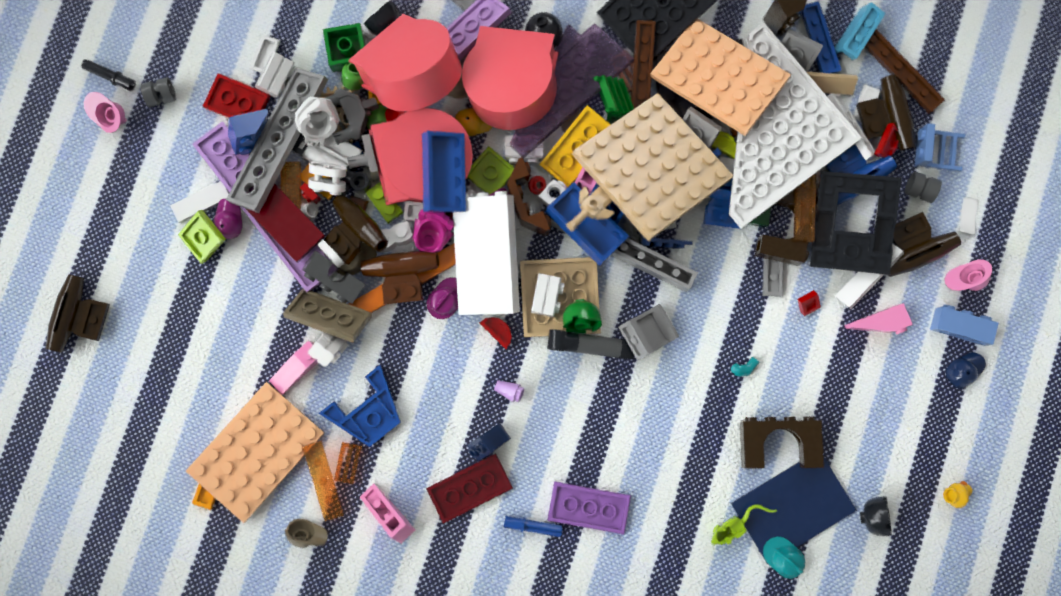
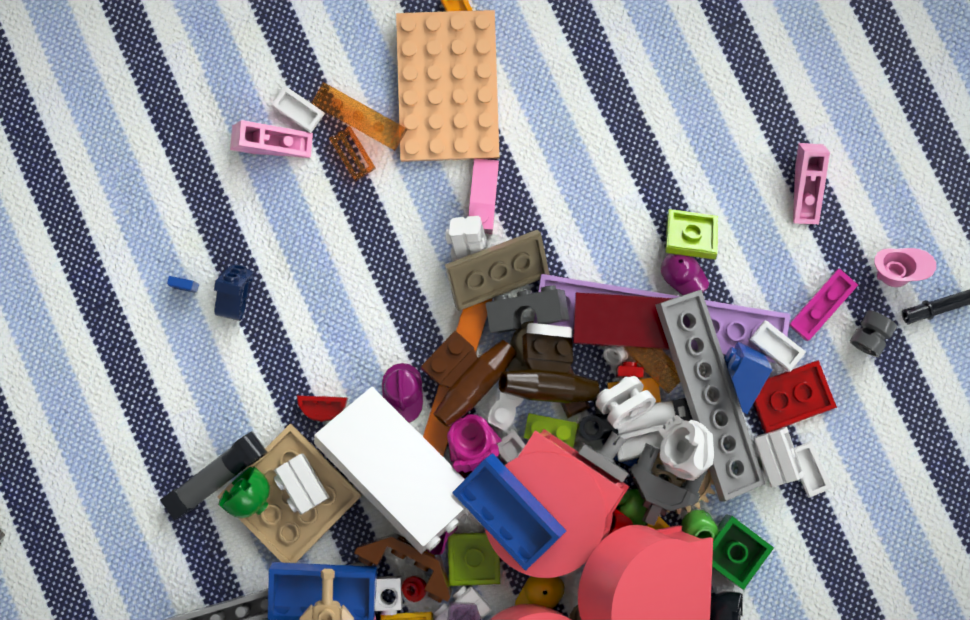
camera: 145 degrees right, 0 degrees up
(74, 315) = (738, 53): dark brown plate -> none
(108, 205) = (809, 182): none -> bright pink slope
(169, 133) = (823, 304): none -> dark pink plate
(201, 200) = (728, 266): white tile -> none
(216, 133) = (777, 346): none -> white tile
(305, 533) = (328, 59): dark tan cap -> none
(354, 519) = (298, 109): none -> white tile
(371, 418) = (367, 213): blue wing -> none
(469, 488) = (215, 233): dark red tile -> none
(509, 390) = (258, 359): lavender cone -> none
(513, 474) = (183, 284): none -> blue tile
(532, 526) = (121, 252): blue axle -> none
(589, 507) = (83, 318): medium lavender tile -> none
(648, 331) = (168, 541): light grey panel -> none
(745, 370) = (41, 591): teal arm -> none

